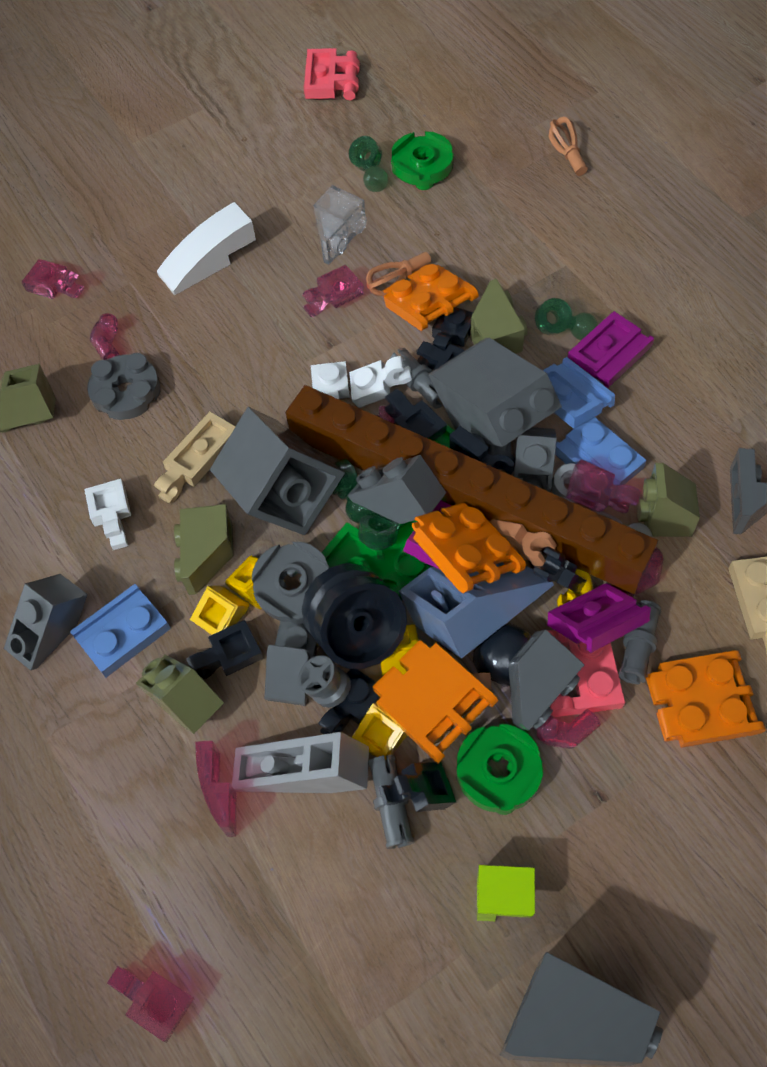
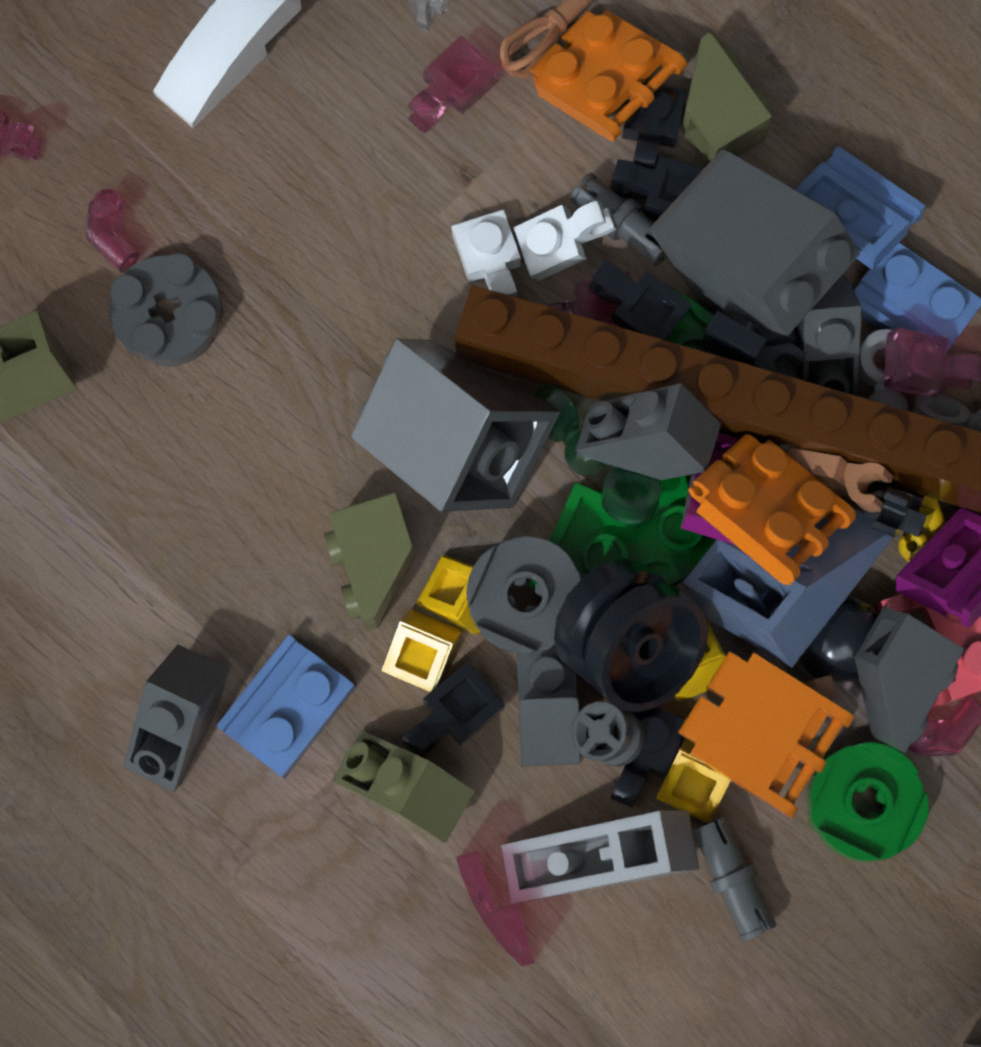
camera: 15 degrees left, 15 degrees up
(106, 506) = (210, 521): white plate -> none
(193, 456) = (318, 409): tan plate -> none
(423, 784) = (776, 851): black plate -> none
(505, 892) = (911, 970): lime panel -> none
(579, 325) = (849, 82): clear green plate -> none
(610, 349) = (900, 120): magenta plate -> none

